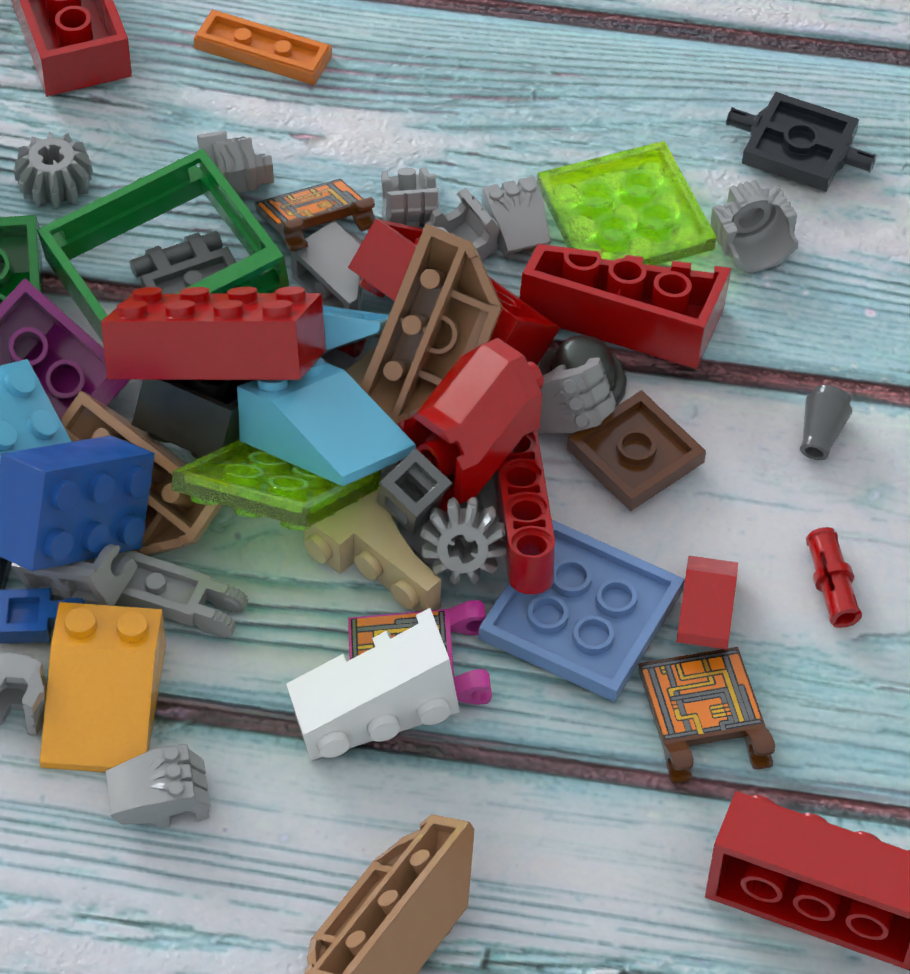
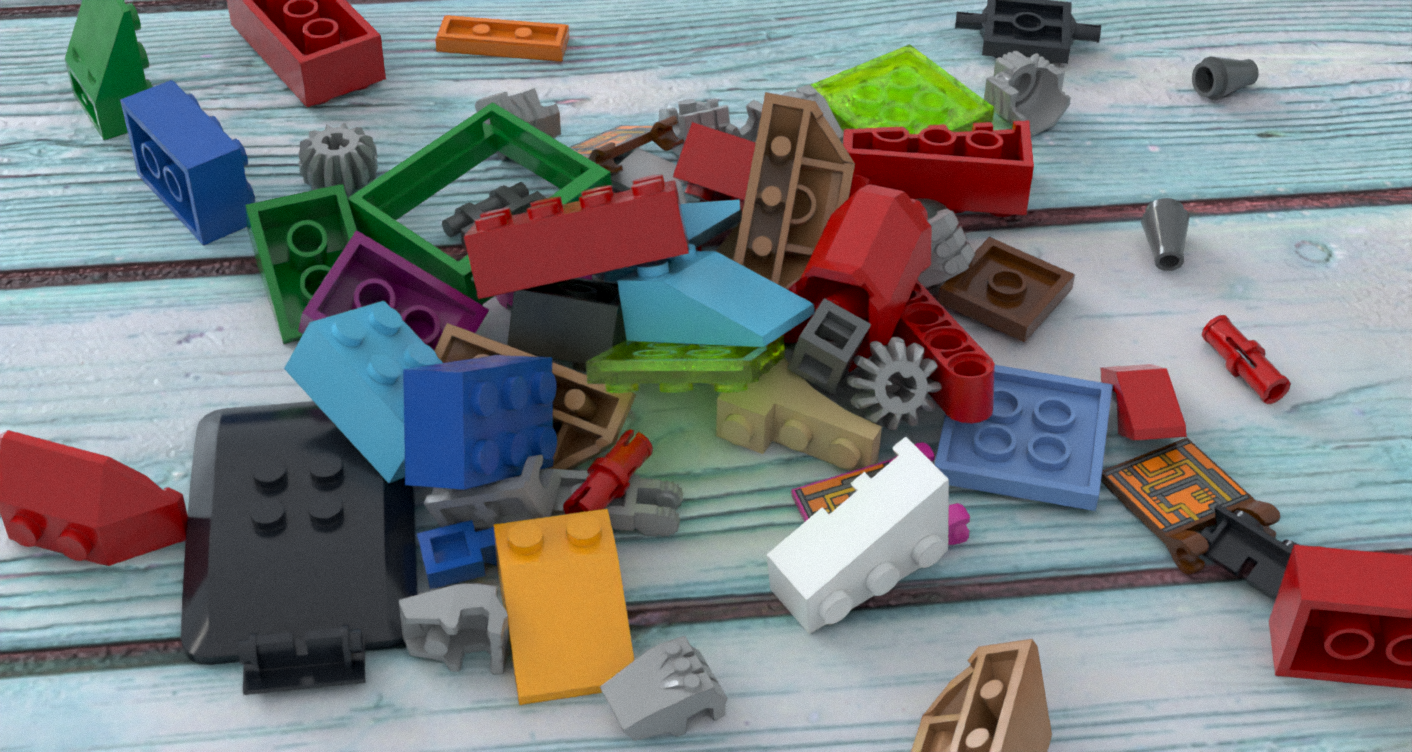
camera: 15 degrees left, 10 degrees down
(179, 574) = (610, 474): none -> red pin
(725, 765) = (1243, 539): none -> black hinge

